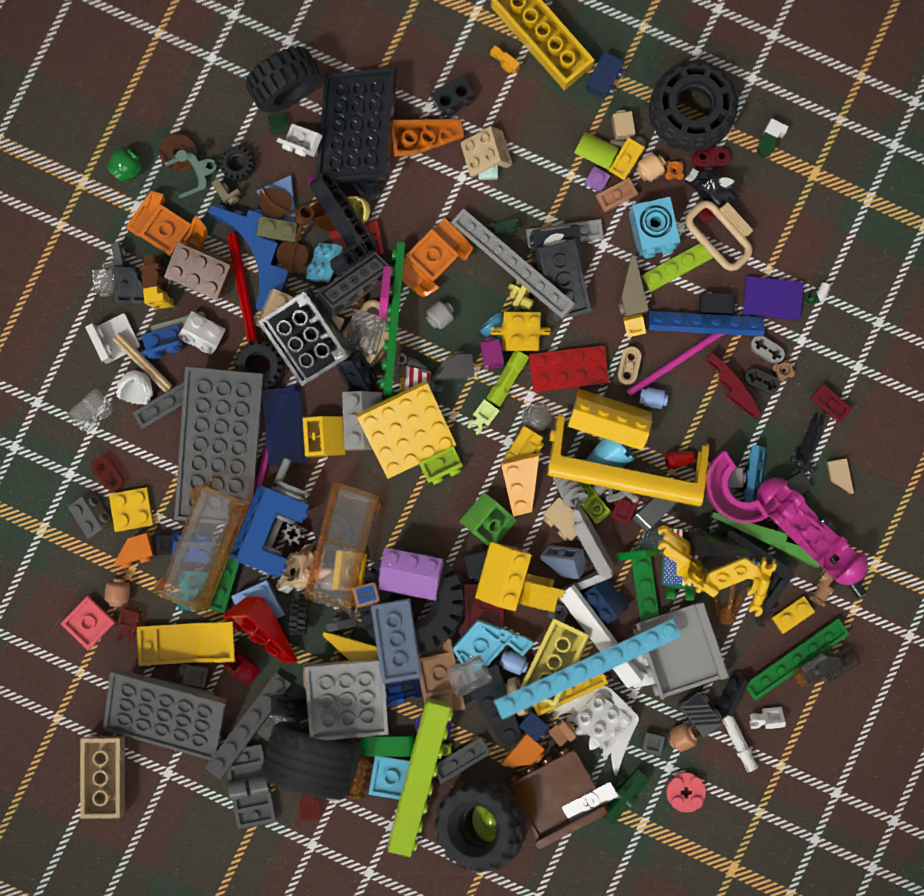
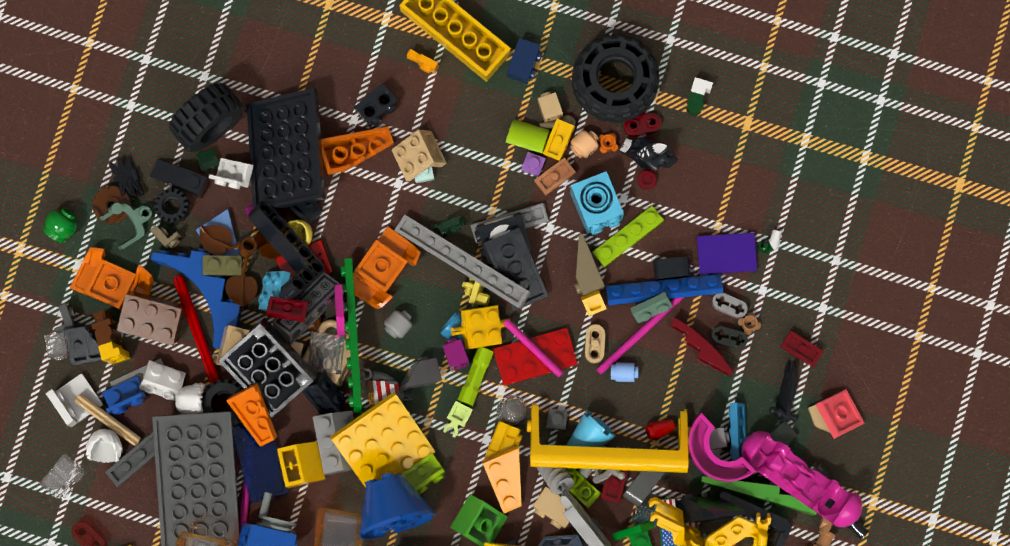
camera: 10 degrees left, 5 degrees down
(196, 127) = (126, 177): none -> black piece
(224, 355) = (189, 399): none -> white hair
(249, 137) = (180, 178): none -> black slope
(285, 380) = (253, 414): none -> orange wing
(333, 282) = (287, 309): none -> dark red plate
(406, 491) = (392, 506): none -> blue cone
(568, 359) = (533, 348): none -> dark pink bar
(579, 436) = (557, 419): none -> dark grey plate
(611, 419) = (584, 400): yellow slope -> none
(690, 339) = (651, 307): none -> sand green plate
(732, 222) = (673, 185): tan bar -> none
(858, 473) = (840, 413): none -> coral plate

